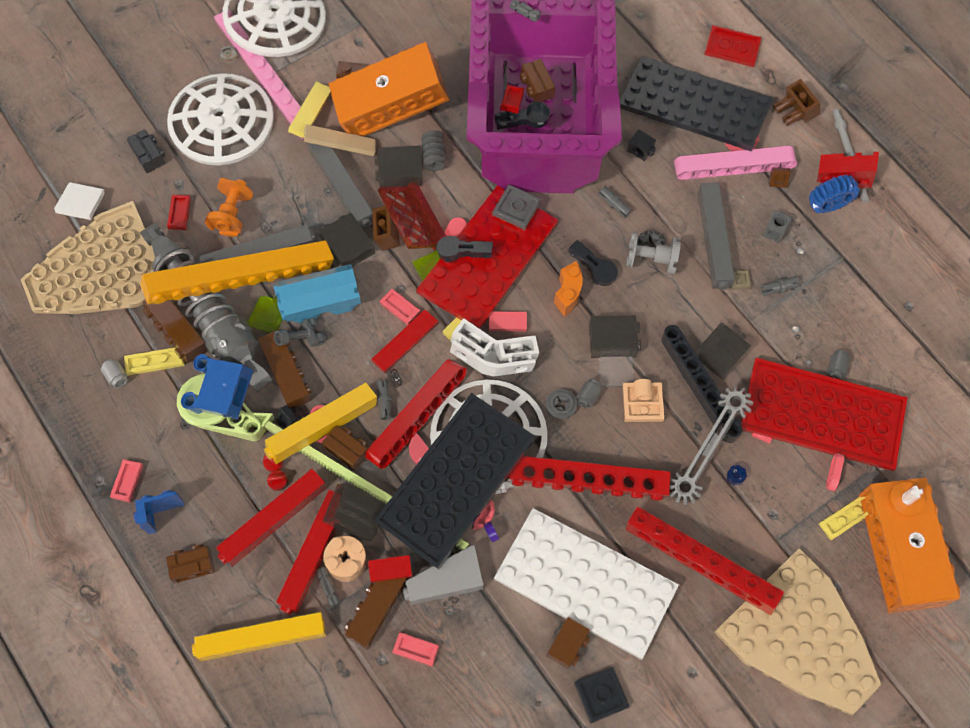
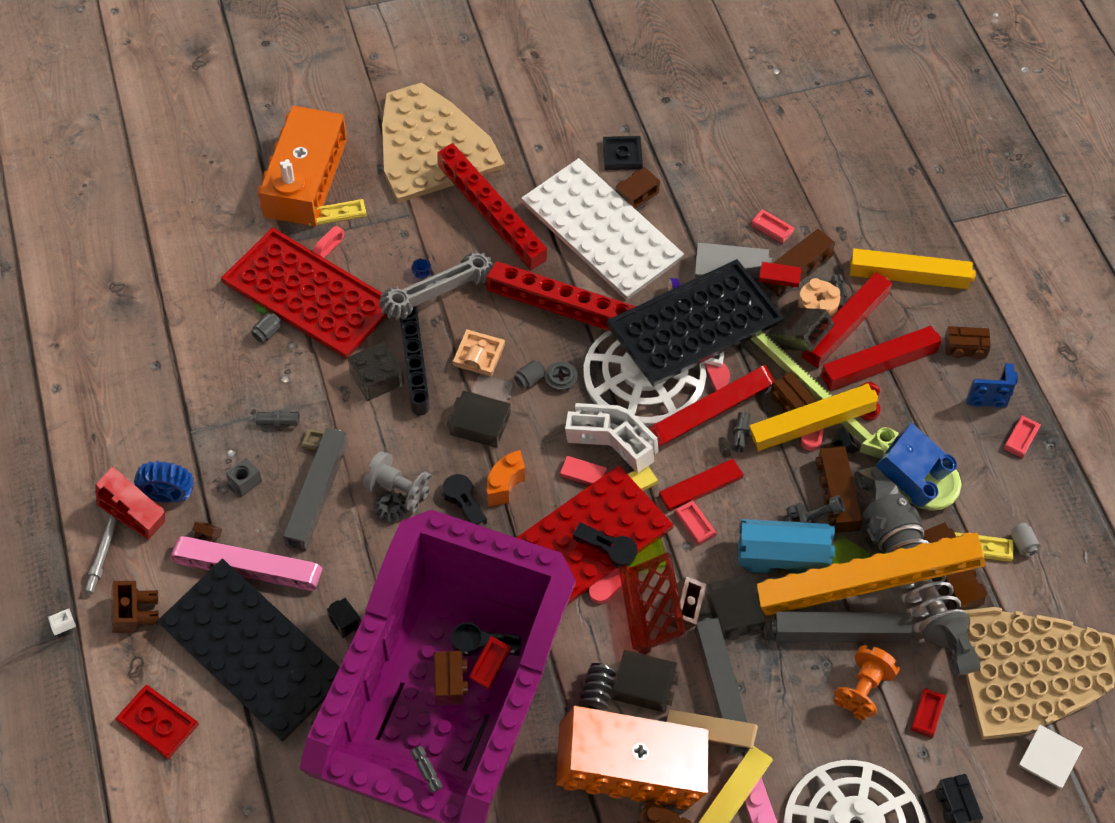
camera: 160 degrees left, 10 degrees down
(840, 84) = (61, 621): none -> white tile

